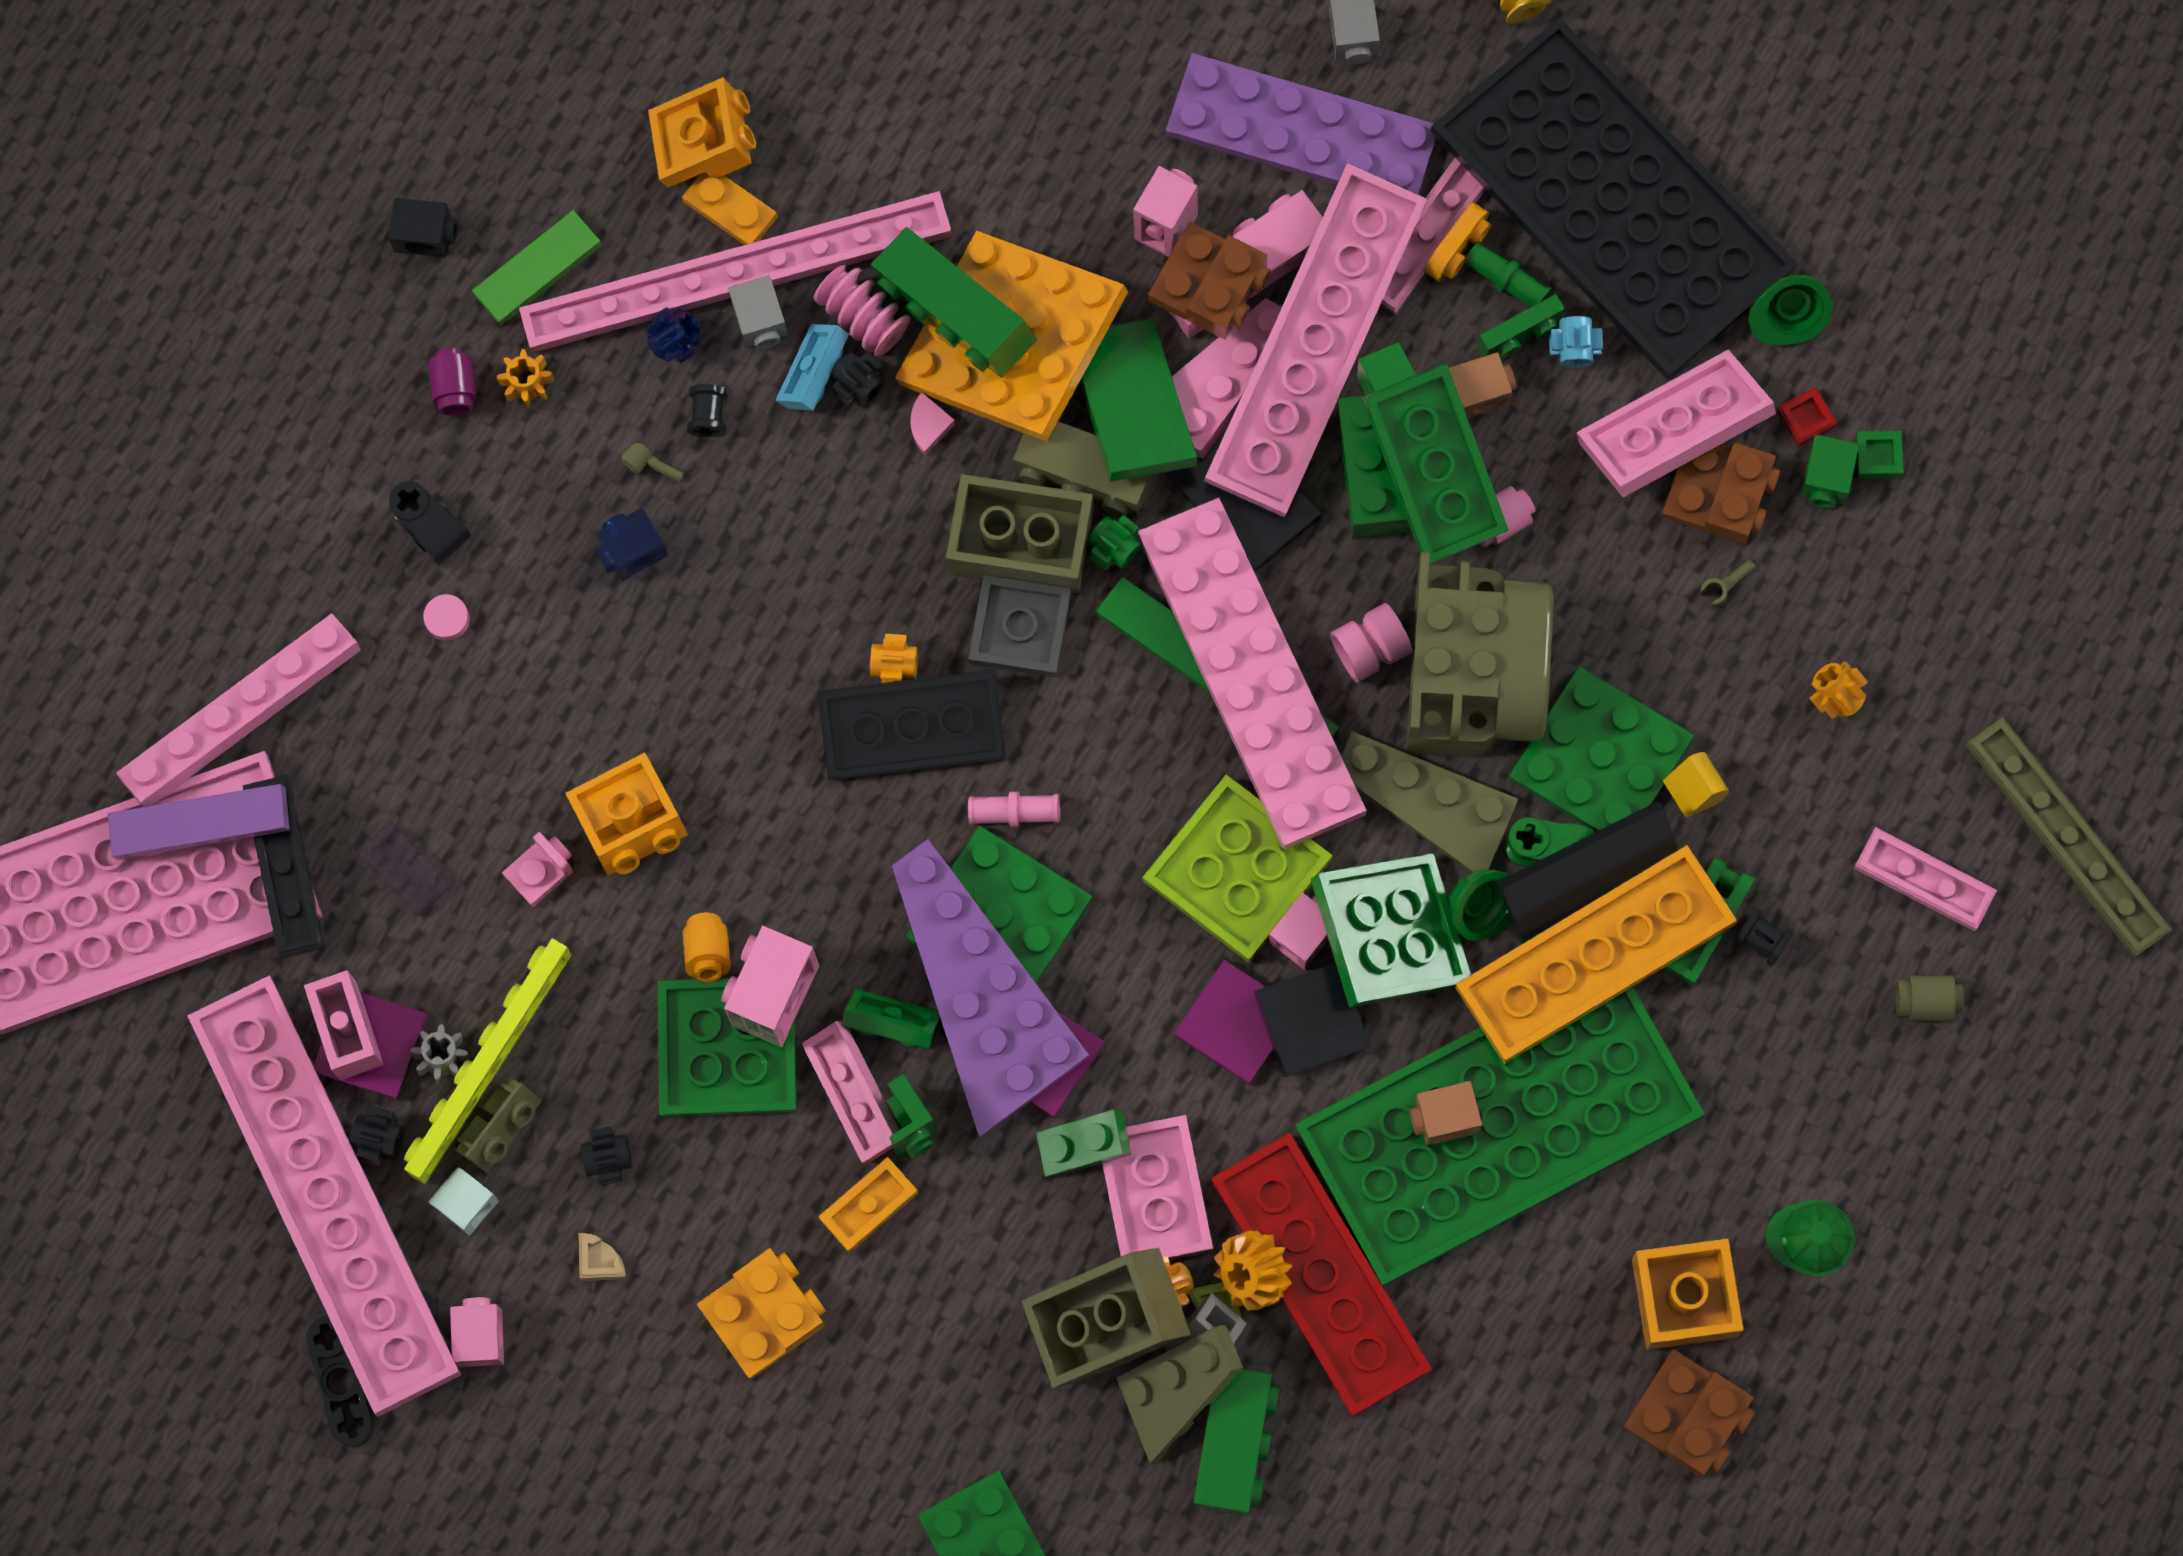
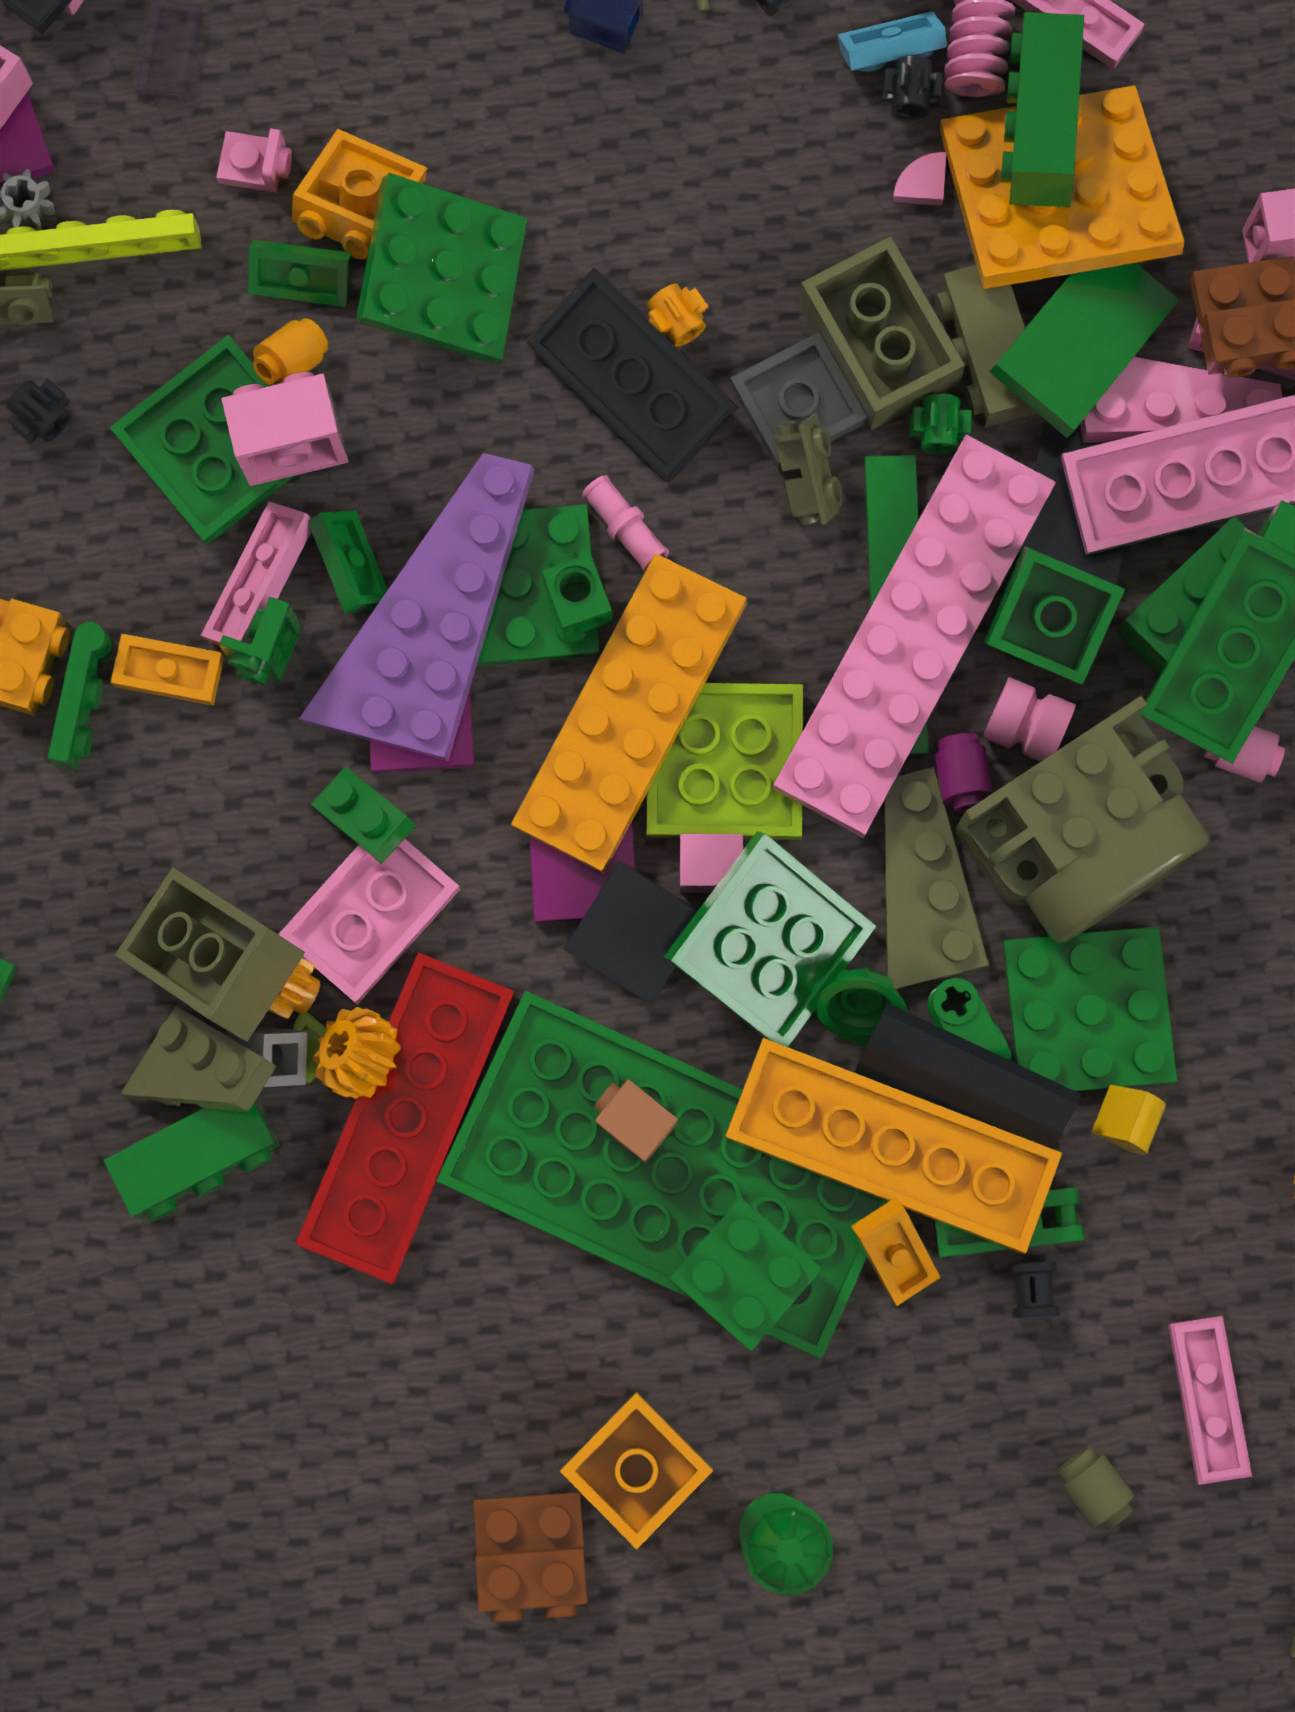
camera: 50 degrees right, 5 degrees up
(651, 898) = (299, 273): none -> green plate
(732, 796) = (441, 269): none -> green plate
(840, 1279) = (79, 694): none -> green plate
(1056, 894) = (580, 616): none -> green brick
(1095, 661) = (816, 488): none -> olive hinge
(1155, 906) = (629, 713): none -> light orange plate
(1311, 570) = (1053, 615): none -> green brick
(1372, 714) = (962, 771): none -> magenta brick
(1610, 1118) = (745, 1274): none -> green brick
(1669, 1007) = (895, 1251): none -> light orange plate

